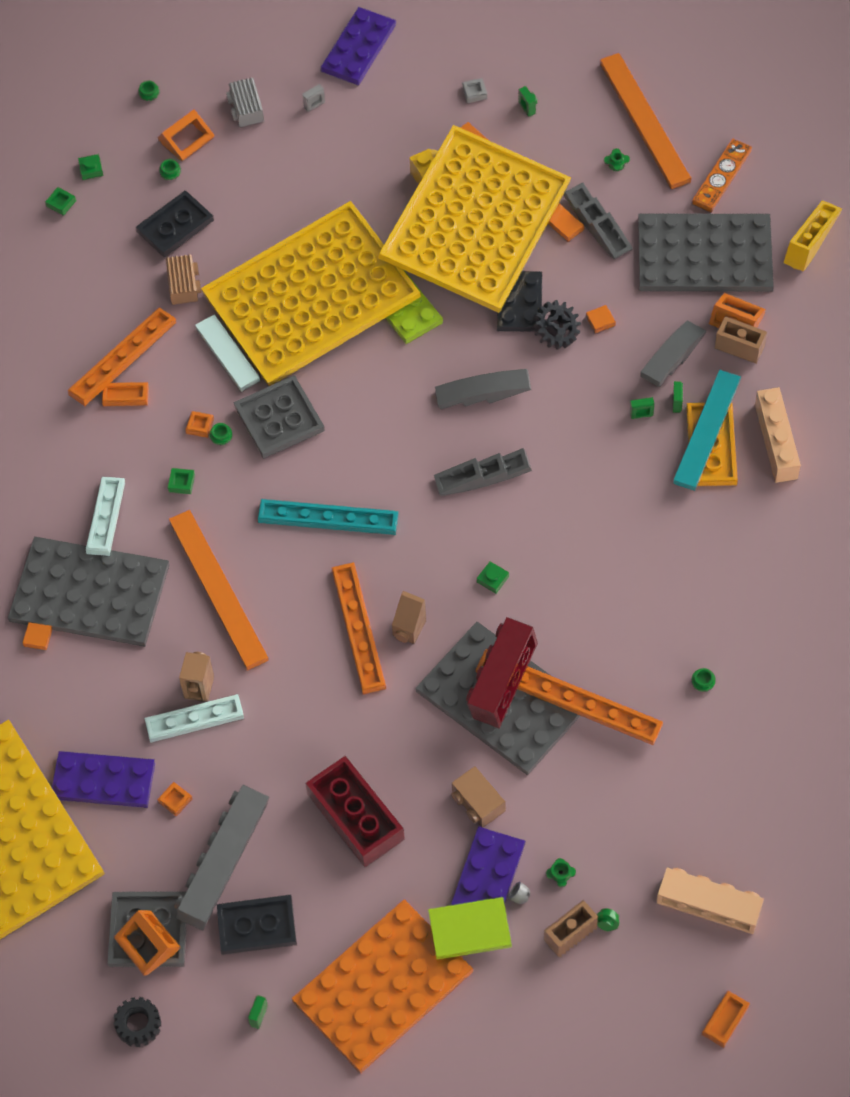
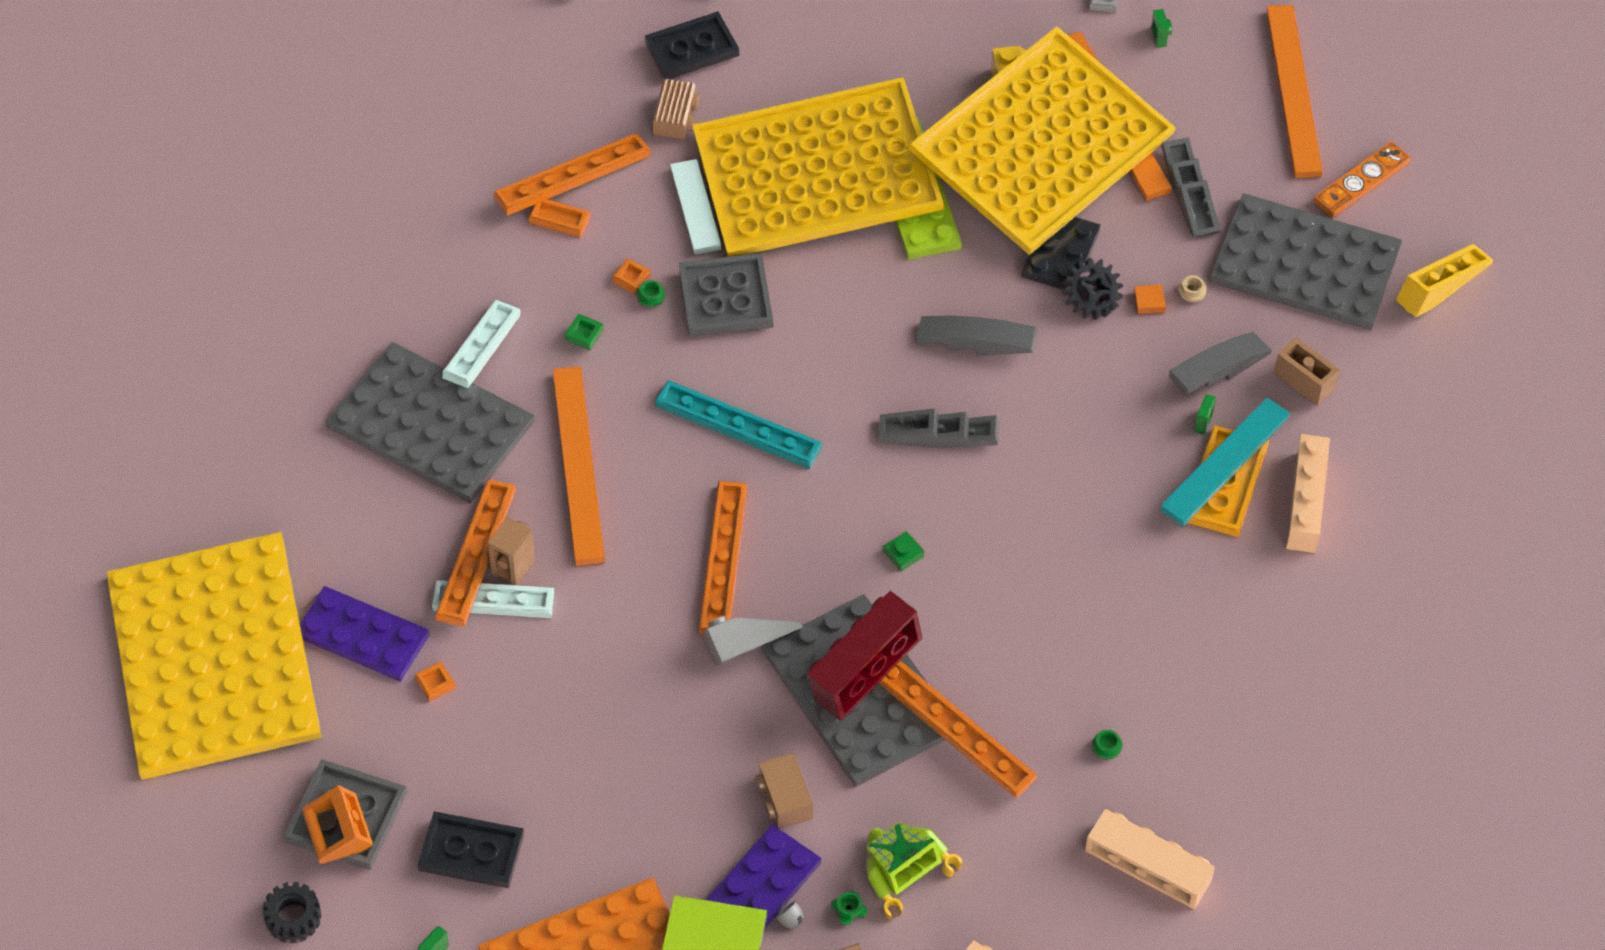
camera: 15 degrees right, 5 degrees down
(37, 636) = (352, 452): orange tile -> none
(167, 686) = (474, 553): none -> orange tile
(222, 857) = (460, 760): dark grey brick -> none
(355, 811) = (634, 759): dark red brick -> none
(396, 687) = (743, 635): none -> light grey slope
(409, 618) = (784, 563): medium nougat slope -> none
(587, 821) = (903, 857): none -> lime torso
(616, 165) = (1241, 125): green plate -> none
(632, 296) = (1192, 283): none -> tan plate
(642, 408) = (1157, 413): green tile -> none
(721, 310) = (1298, 329): orange tile -> none
(770, 758) = (1150, 858): none -> light nougat brick

